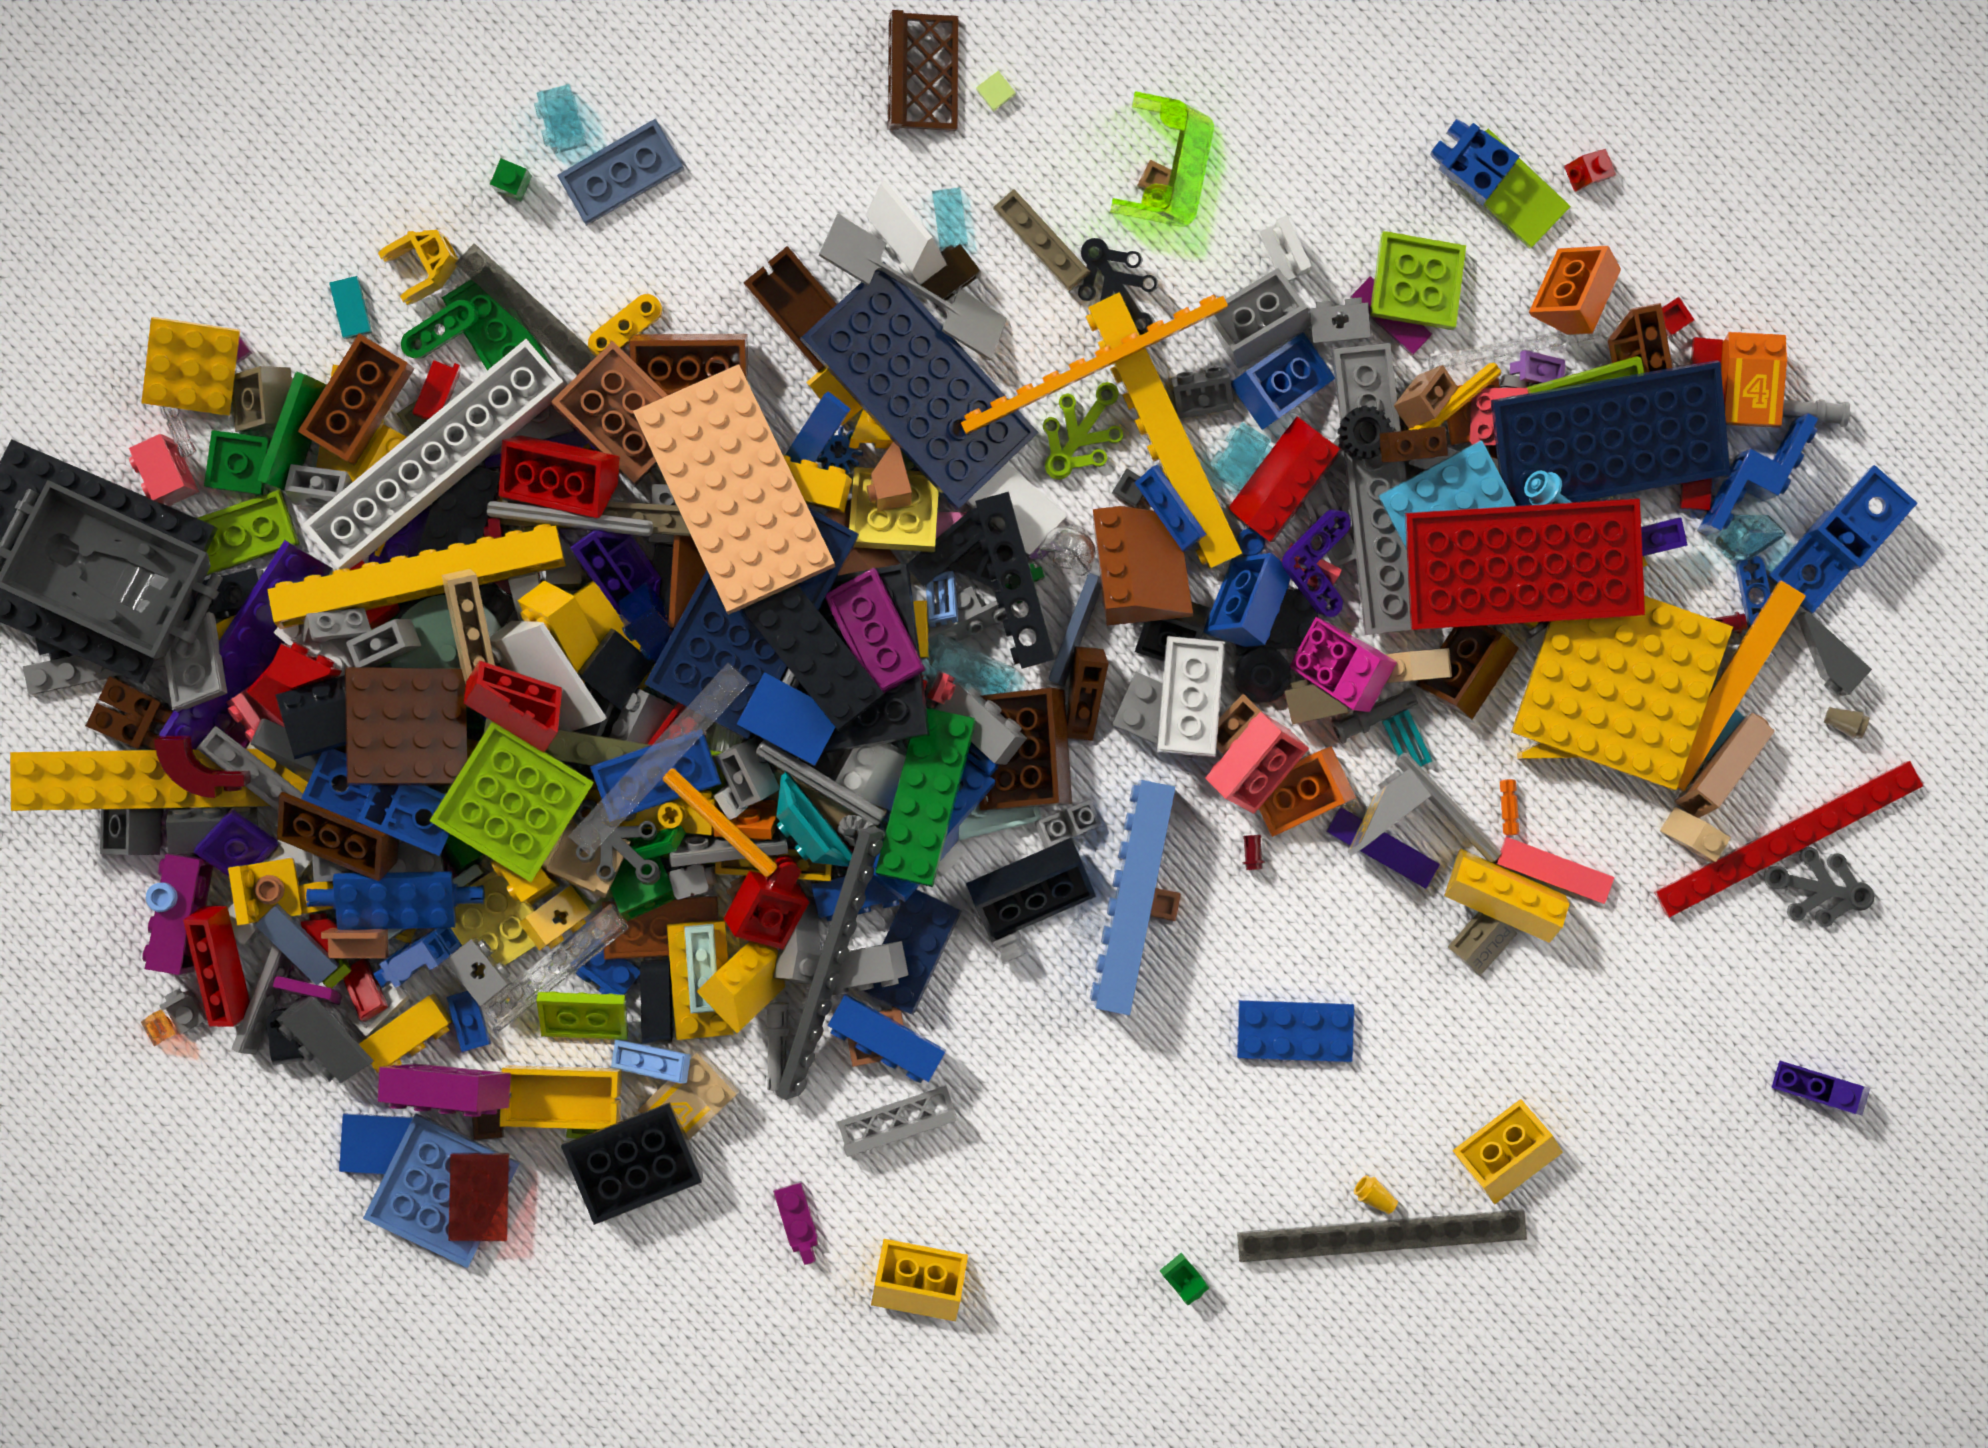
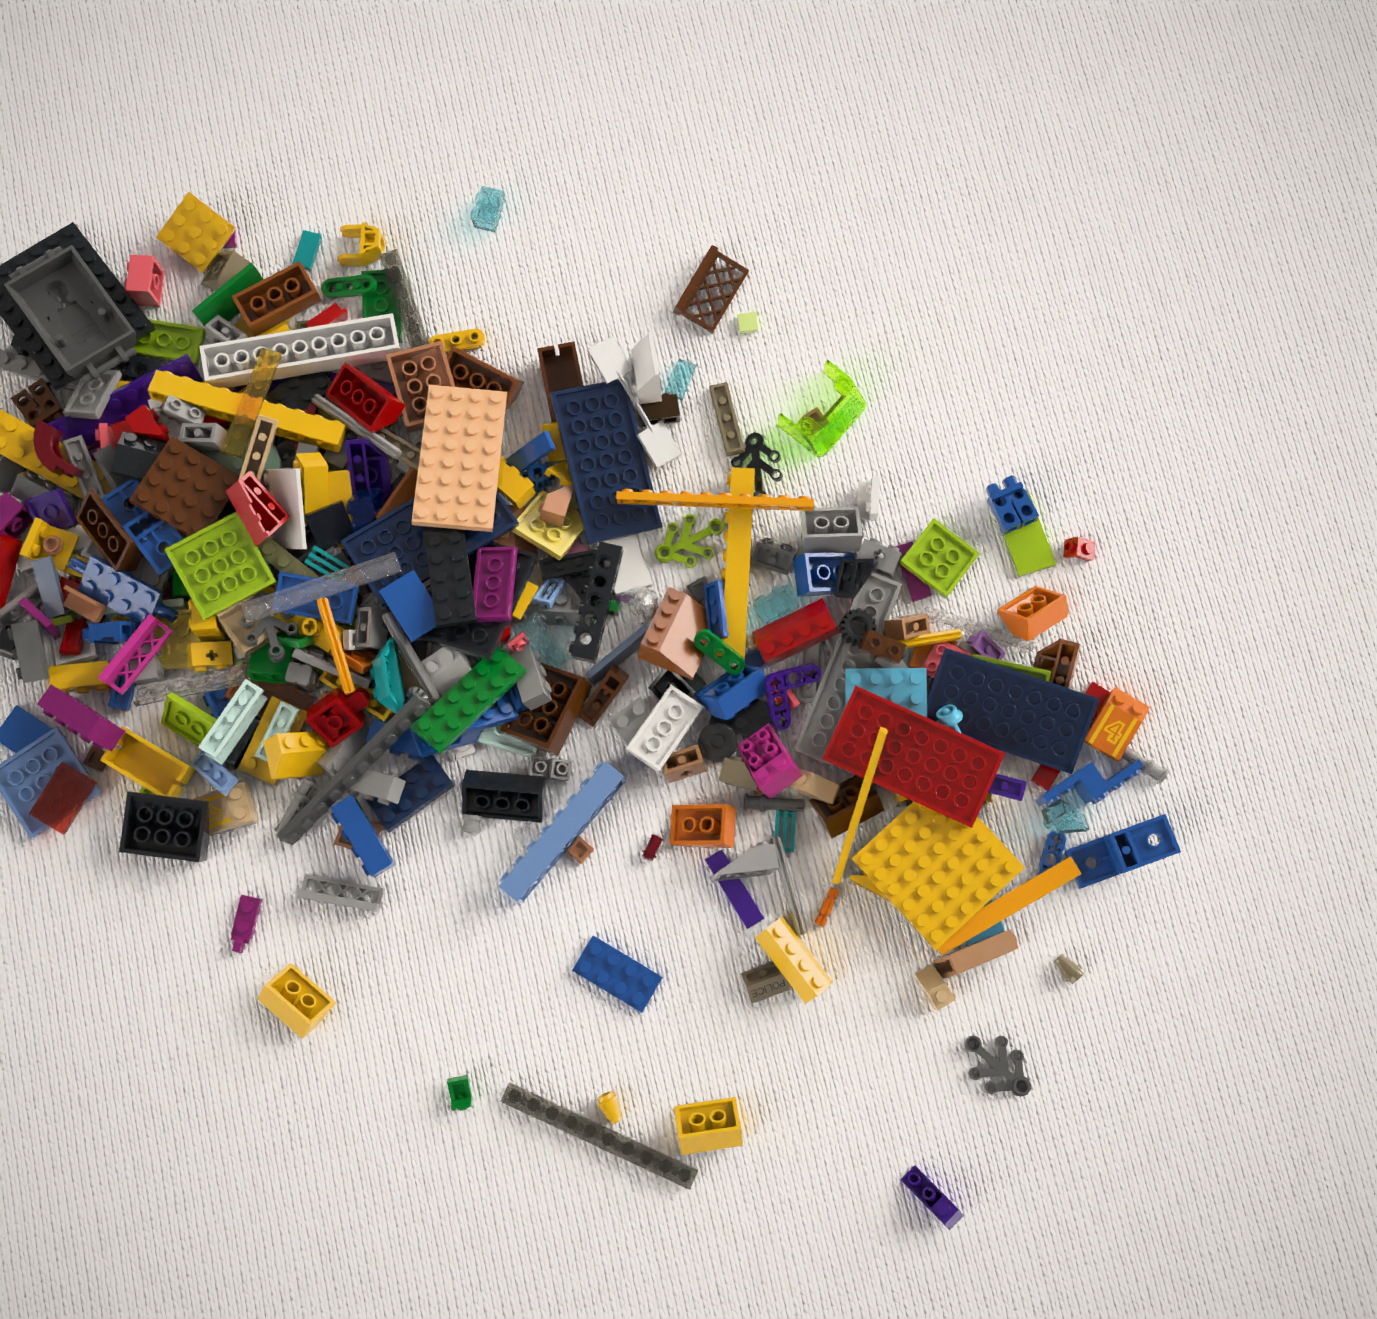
camera: 30 degrees right, 10 degrees down
(178, 431) = (168, 266): clear axle -> none
(235, 462) = (185, 298): green plate -> none
(419, 564) = (251, 403): none -> clear yellow tile
(455, 970) = (130, 649): none -> dark pink fence
(510, 180) = (439, 226): green brick -> none
(620, 172) = (504, 256): sand blue tile -> none
(627, 733) = (312, 556): none -> teal tile
(644, 988) = (233, 722): none -> light aqua fence
(1197, 554) = (716, 644): none -> green plate
(1256, 763) = (683, 791): coral brick -> none
(1322, 367) = (852, 576): none -> black wing
(1490, 662) = (860, 805): none -> yellow tile
(1555, 870) = (834, 962): coral tile -> none
(1676, 316) = (1087, 662): red plate -> none
(1737, 620) = (1030, 868): dark red pin -> none
(1788, 839) = (993, 1023): red plate -> none
(1833, 659) = (1079, 926): dark grey slope -> none

